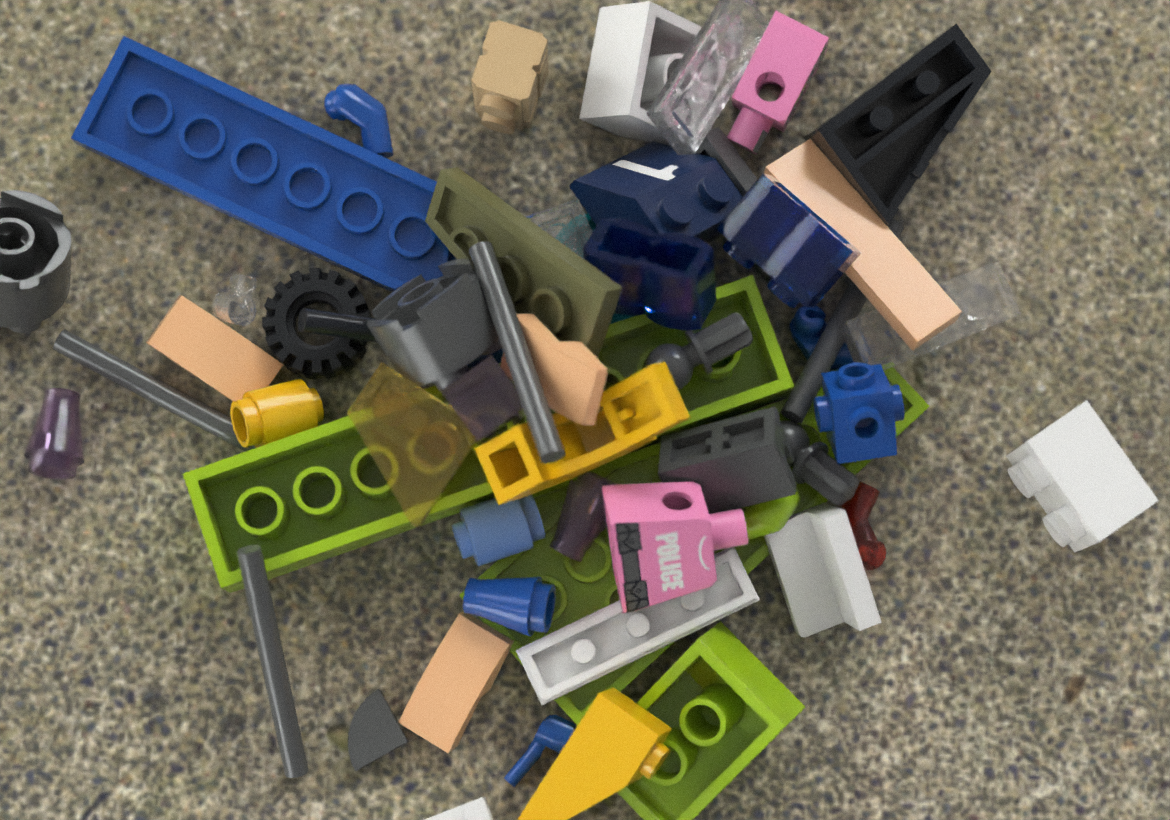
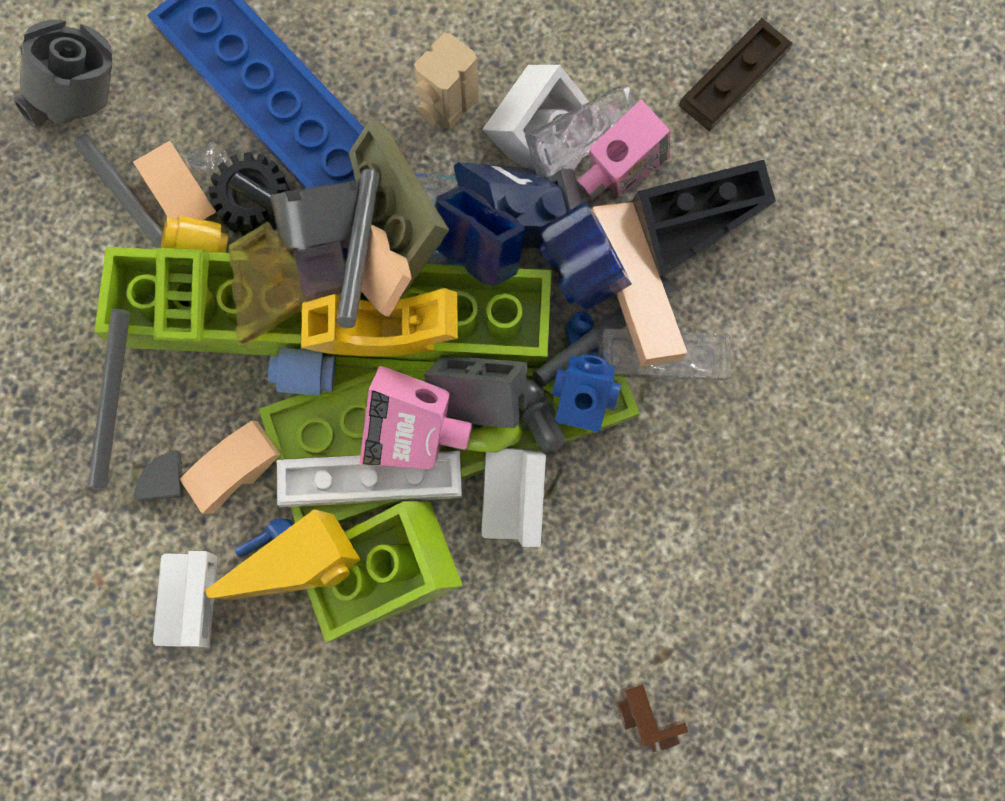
camera: 25 degrees right, 5 degrees down
(57, 438) = (45, 200): clear purple cone -> none
(327, 547) = (164, 266): none -> lime slope
(364, 111) = (348, 79): blue arm -> none
(514, 603) = (289, 426): blue cone -> none
(581, 516) = (355, 392): cone -> none
(704, 348) = (495, 303): dark grey axle -> none
(858, 511) = (555, 470): clear red arm -> none
(1076, 770) = (637, 714): none -> reddish brown bracket
(1080, 479) = (724, 503): white brick -> none

